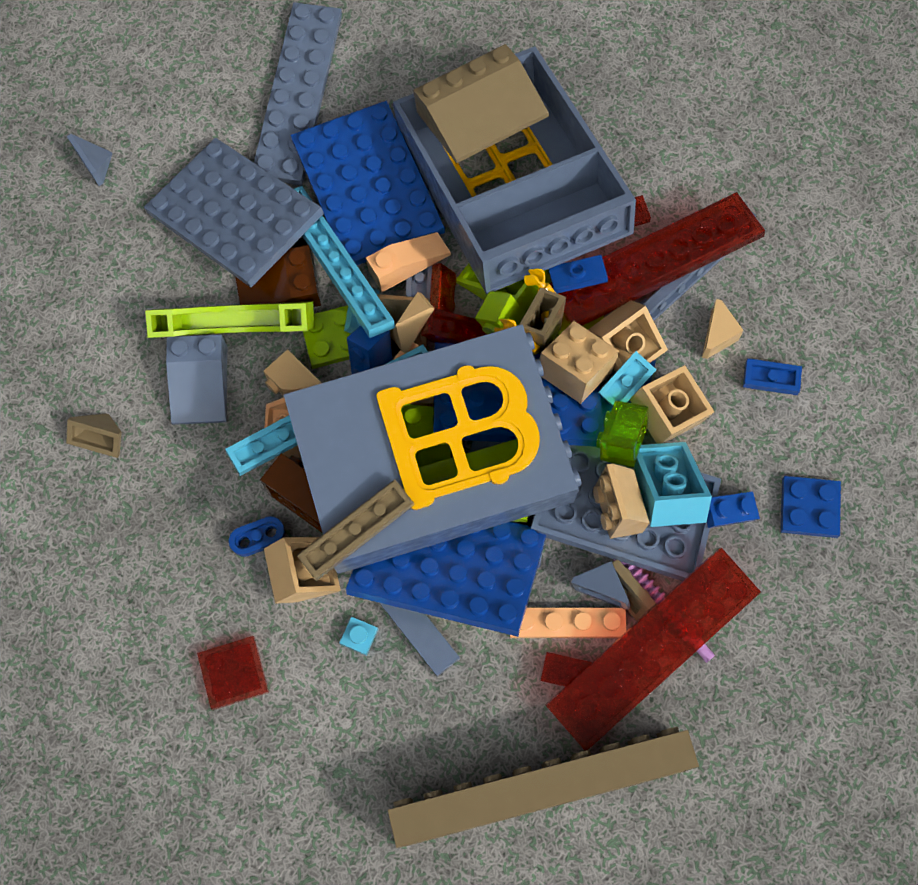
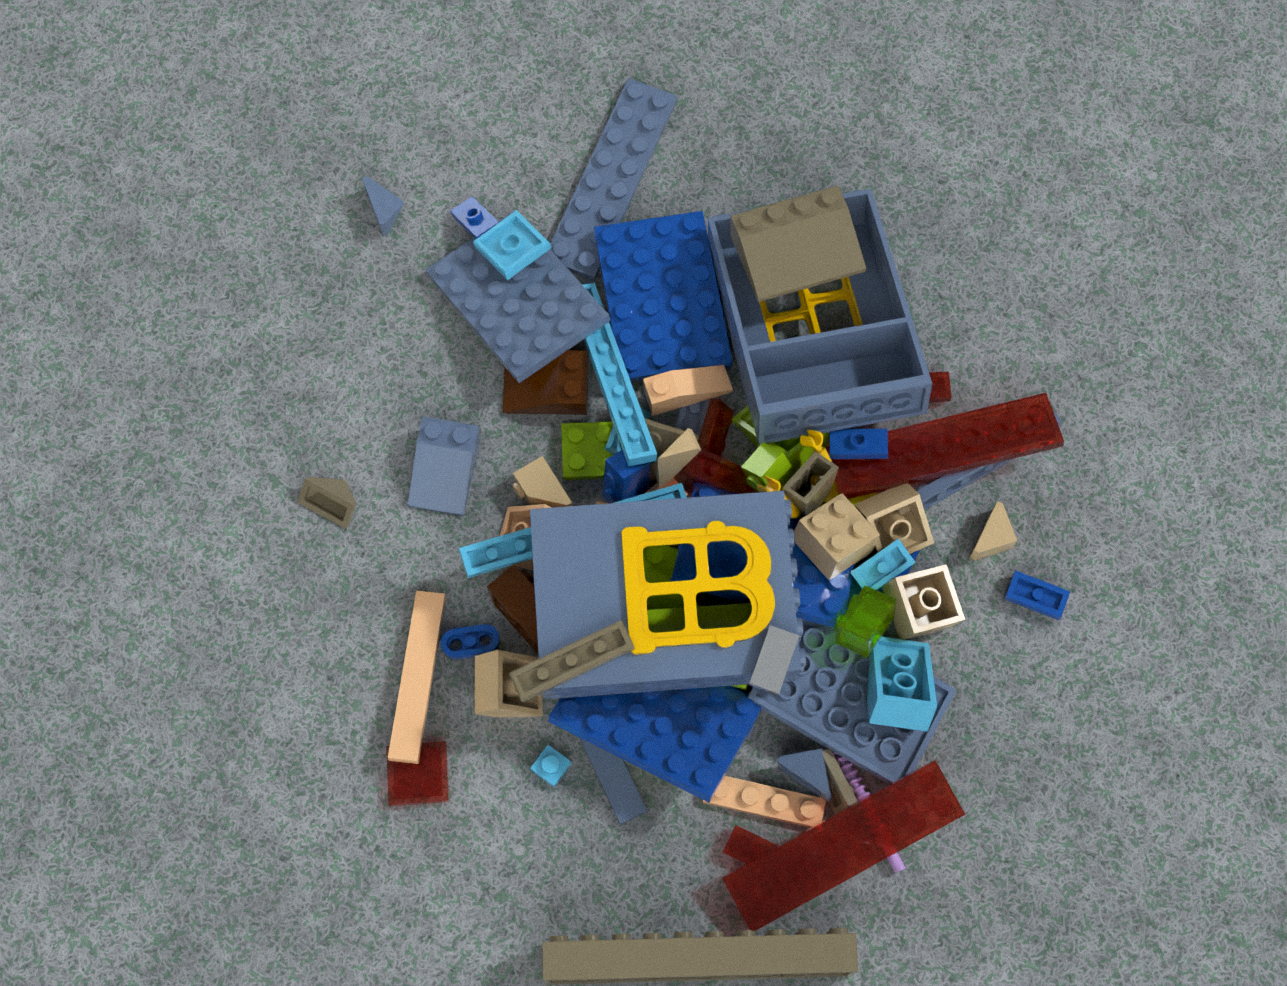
camera: 10 degrees right, 0 degrees up
(181, 152) = (473, 217): none -> plate
(212, 582) = (416, 677): none -> light nougat tile
(218, 165) = (512, 245): none -> medium azure plate
(230, 319) = (512, 414): lime arch -> none
(551, 485) = (774, 660): none -> light grey tile
(620, 502) = (844, 691): tan slope -> none
(732, 510) = (959, 724): blue plate -> none
(810, 507) = (1042, 739): blue plate -> none

